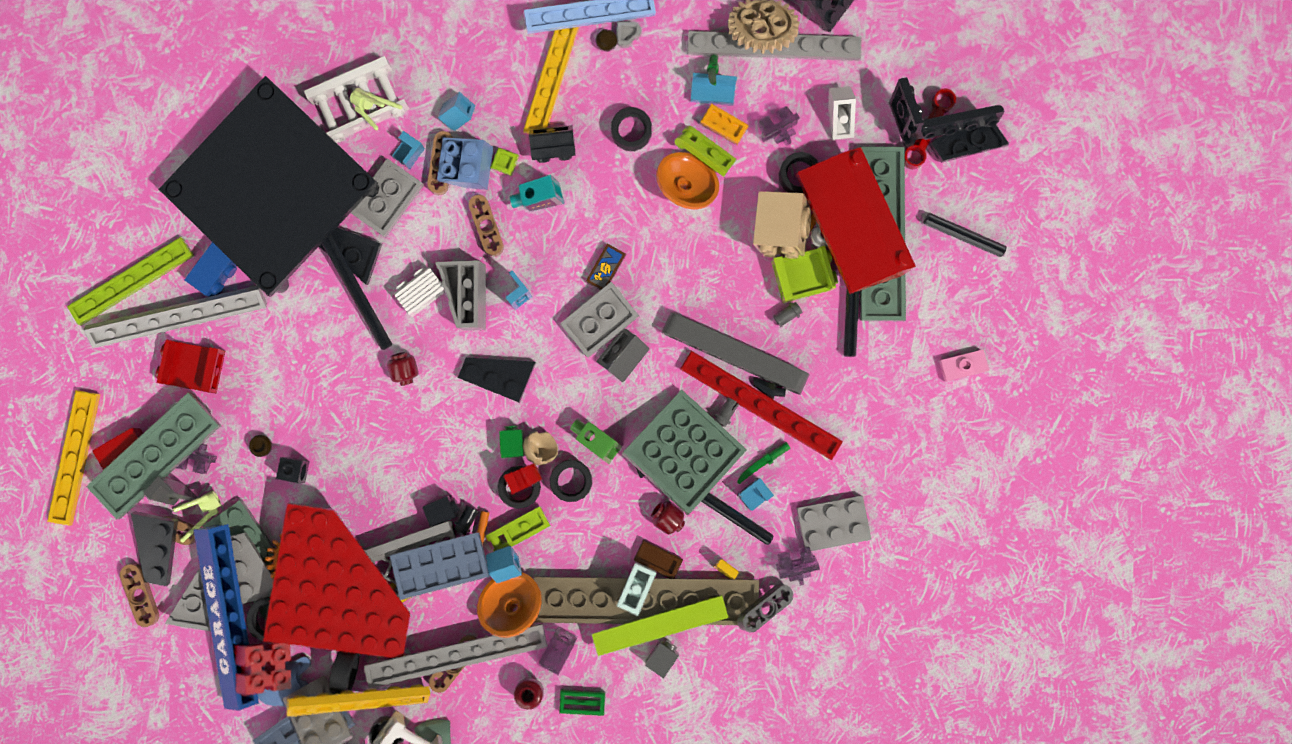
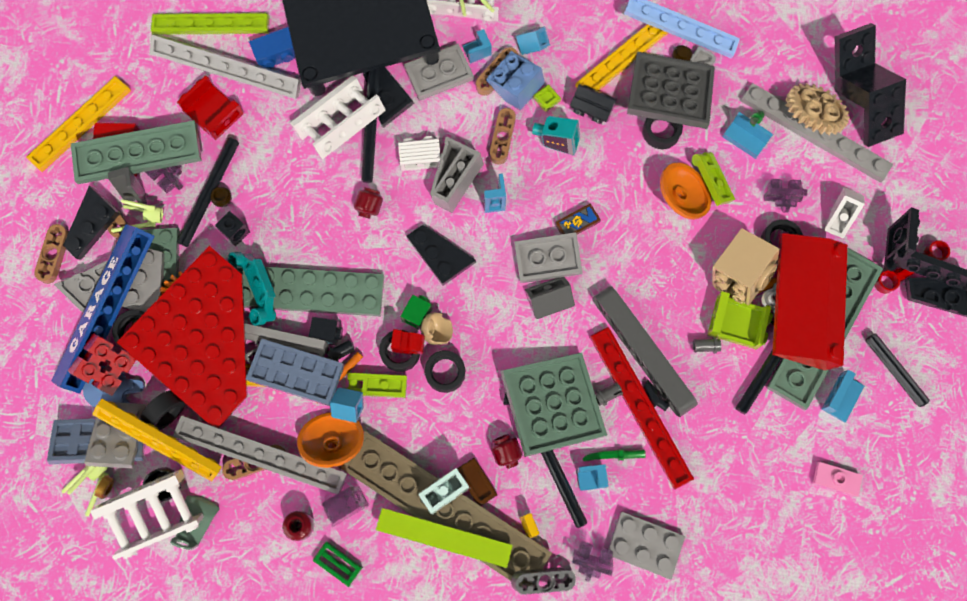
camera: 35 degrees right, 10 degrees down
(245, 454) = (205, 196): none -> black axle
(303, 299) = (328, 107): none -> white fence
(352, 506) = (259, 284): none -> teal plate
(403, 481) = (322, 291): none -> sand green plate
(601, 445) = (486, 351): bright green torso -> none
(618, 86) = (671, 90): none -> dark grey plate
(662, 658) = (428, 568): dark grey brick -> none
(724, 124) = (740, 167): light orange plate -> none
(931, 288) = (843, 396): none -> dark azure panel

